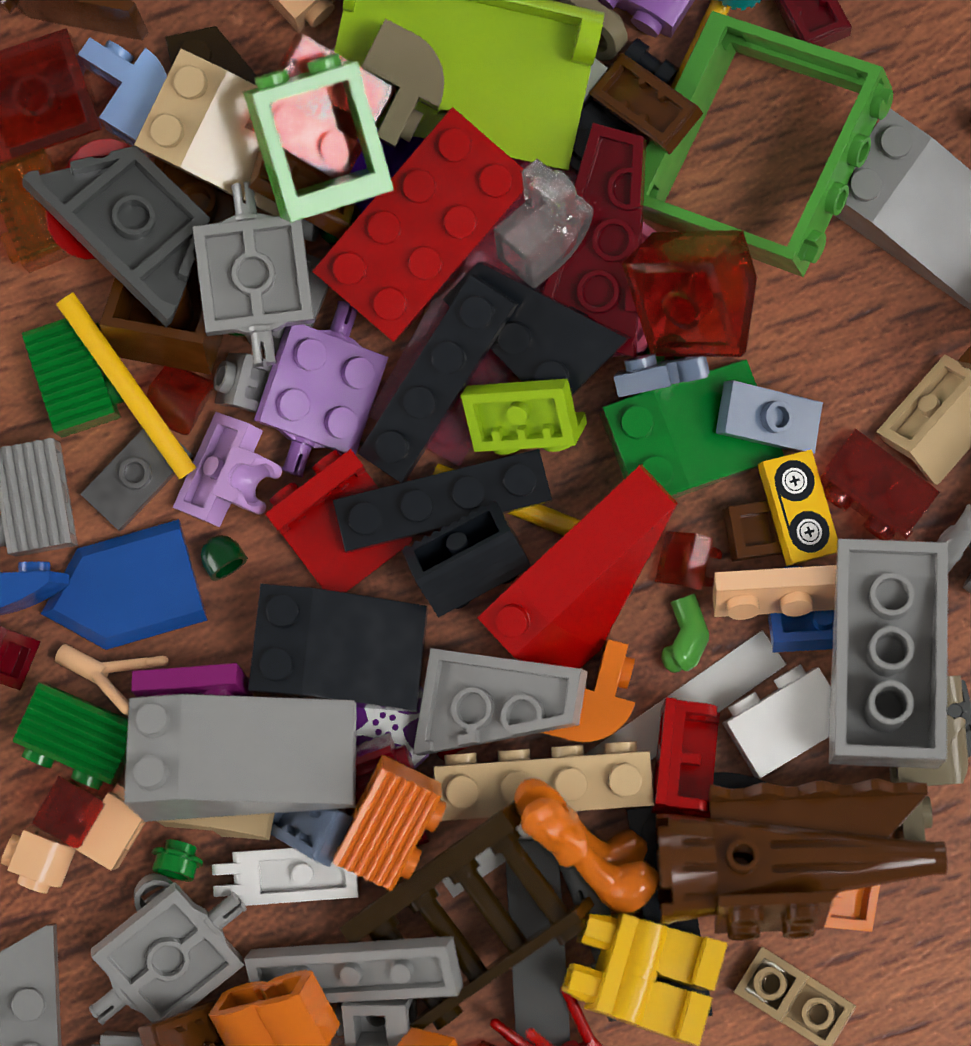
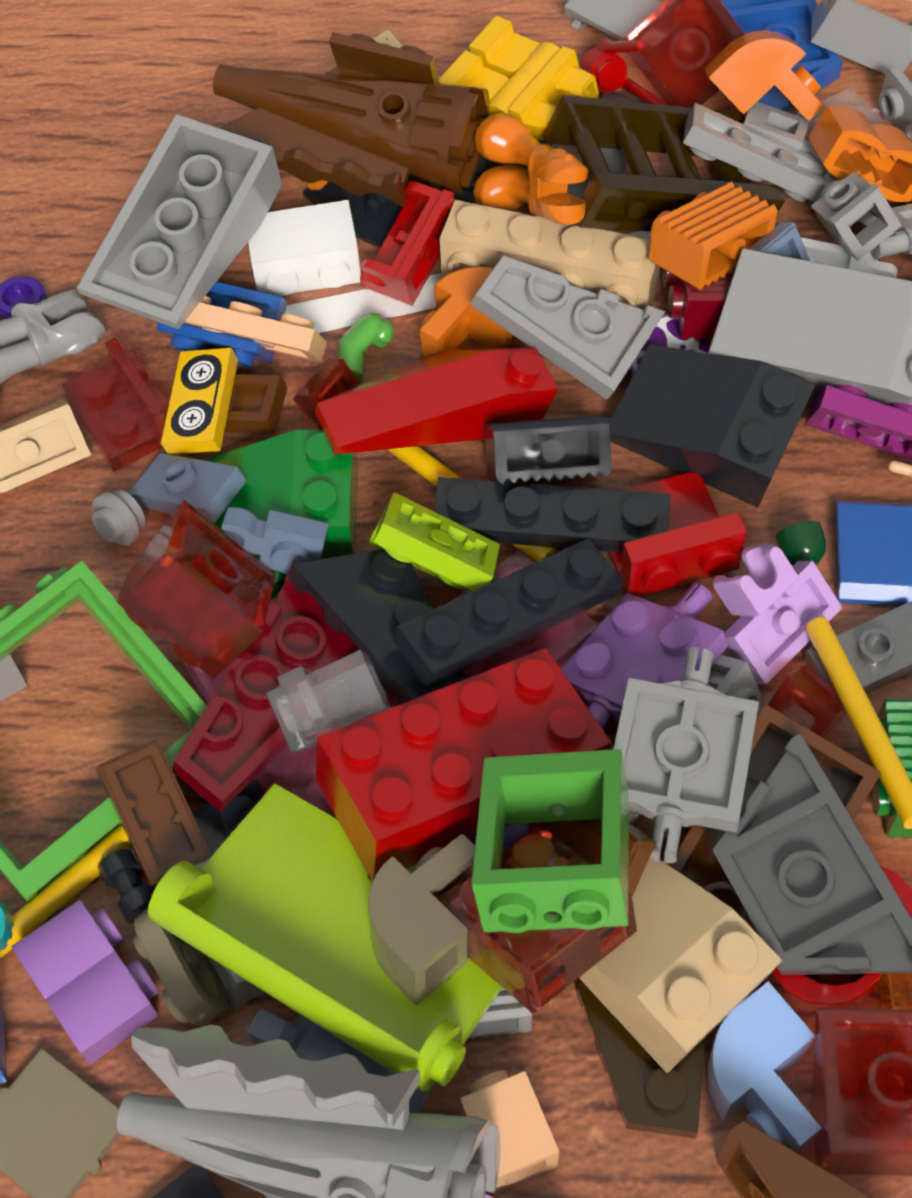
camera: 155 degrees left, 25 degrees down
(252, 919) = (847, 202): none -> light grey brick
(817, 371) = (117, 517): none -> light grey plate

